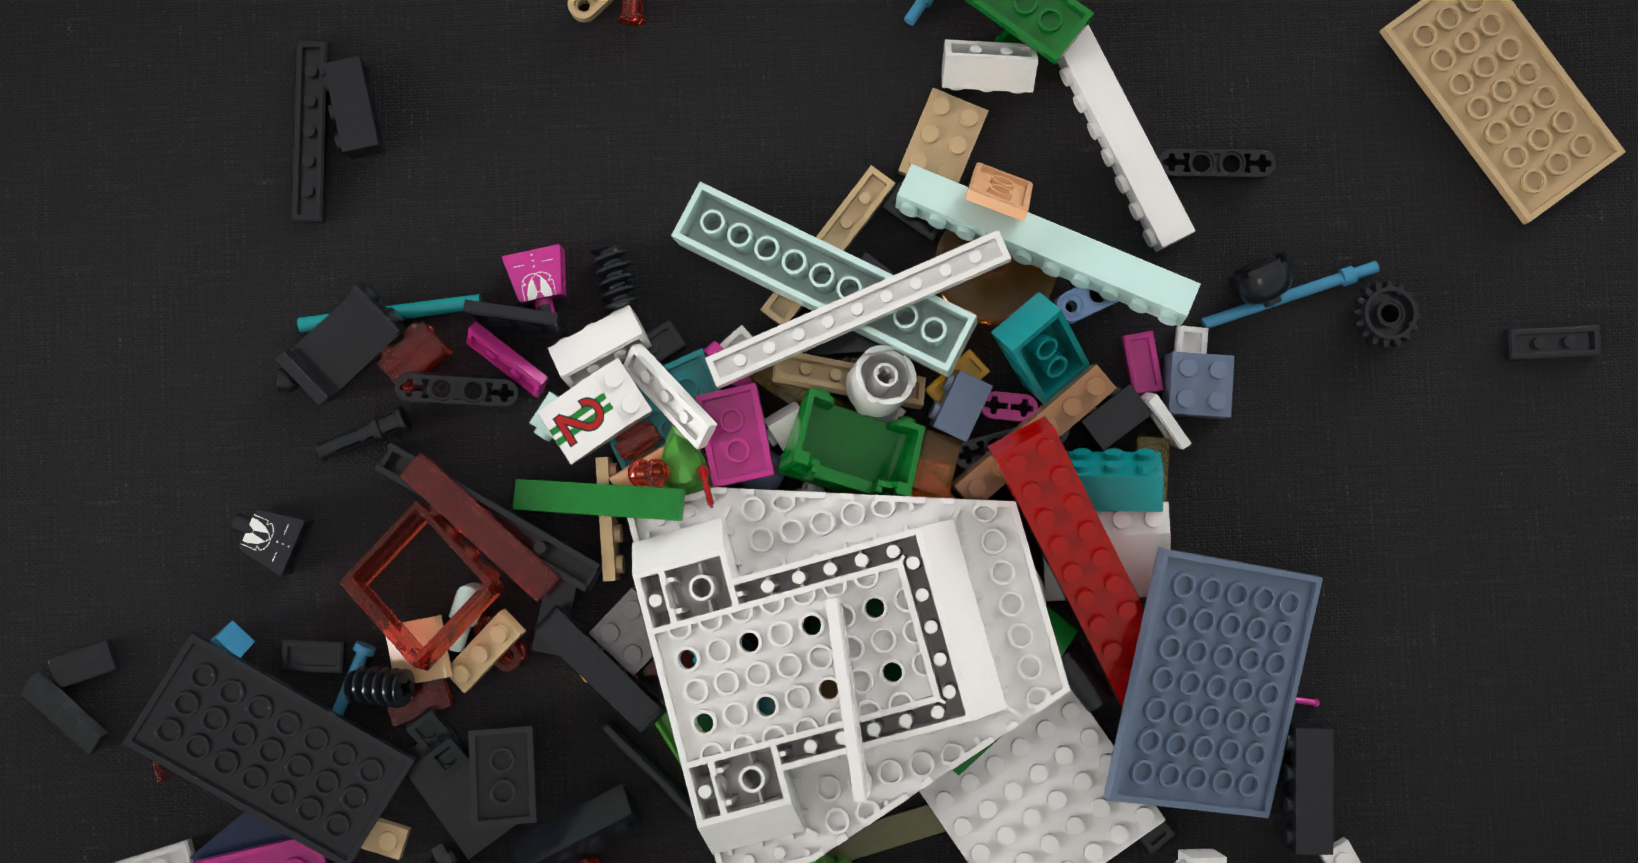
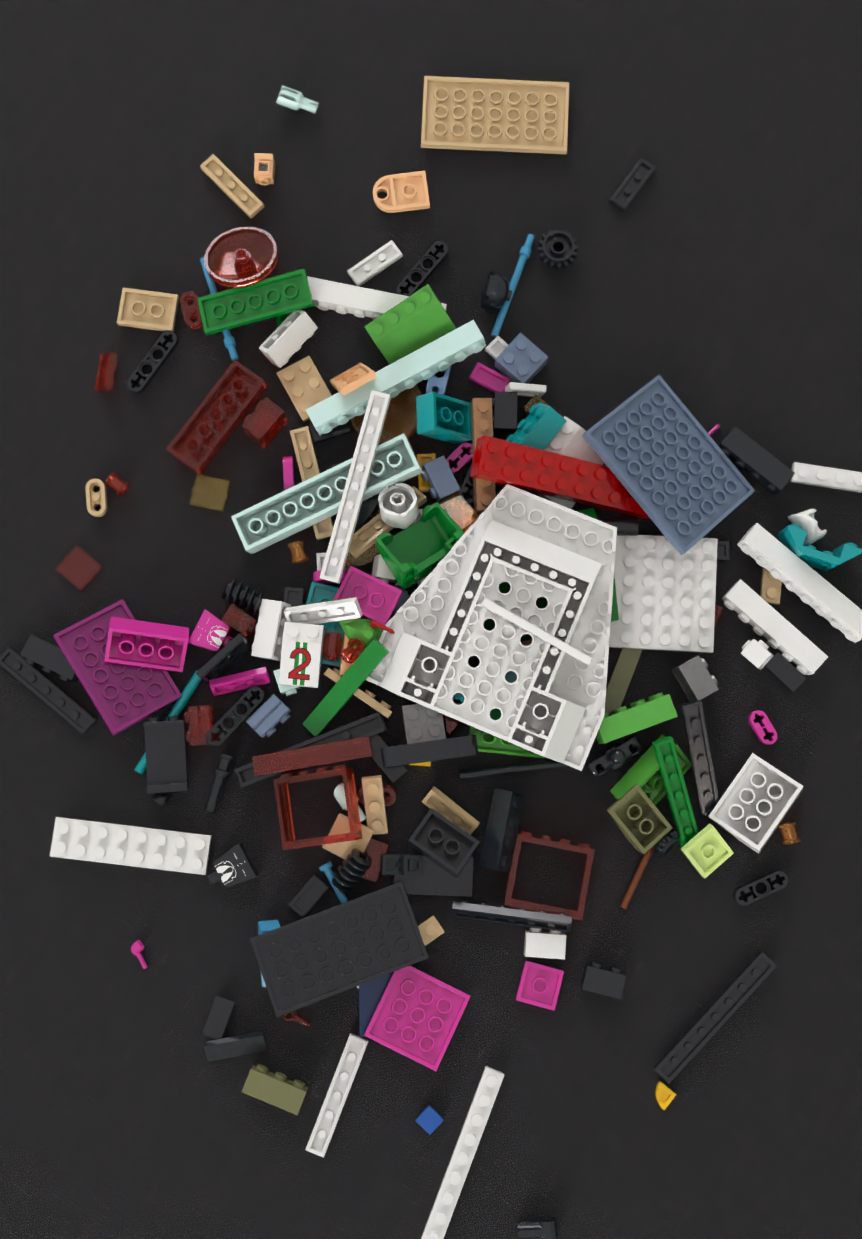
camera: 50 degrees left, 5 degrees down
(50, 803) = (275, 1089): none -> olive brick
(85, 498) = (136, 949): none -> dark pink hand
(204, 390) = (130, 845): none -> white plate
(403, 195) = (117, 690): none -> magenta plate
(458, 207) = (146, 644): none -> dark pink slope
(491, 430) = (269, 716): none -> sand blue brick
(492, 46) = (79, 568): none -> clear red piece
(550, 752) = (450, 810): none -> tan plate
(579, 298) = (239, 620): none -> clear red slope
(714, 129) = (210, 492): none -> clear yellow piece
(725, 300) = (297, 552): none -> clear orange bush
(813, 61) = (217, 418): none -> clear red brick
(815, 208) = (288, 472): none -> dark pink beam
(854, 125) = (264, 422): none -> clear red brick
(1129, 209) = (410, 325): none -> bright green slope
(1176, 96) = (374, 263): none -> white tile
(1302, 57) = (403, 192): none -> light nougat plate

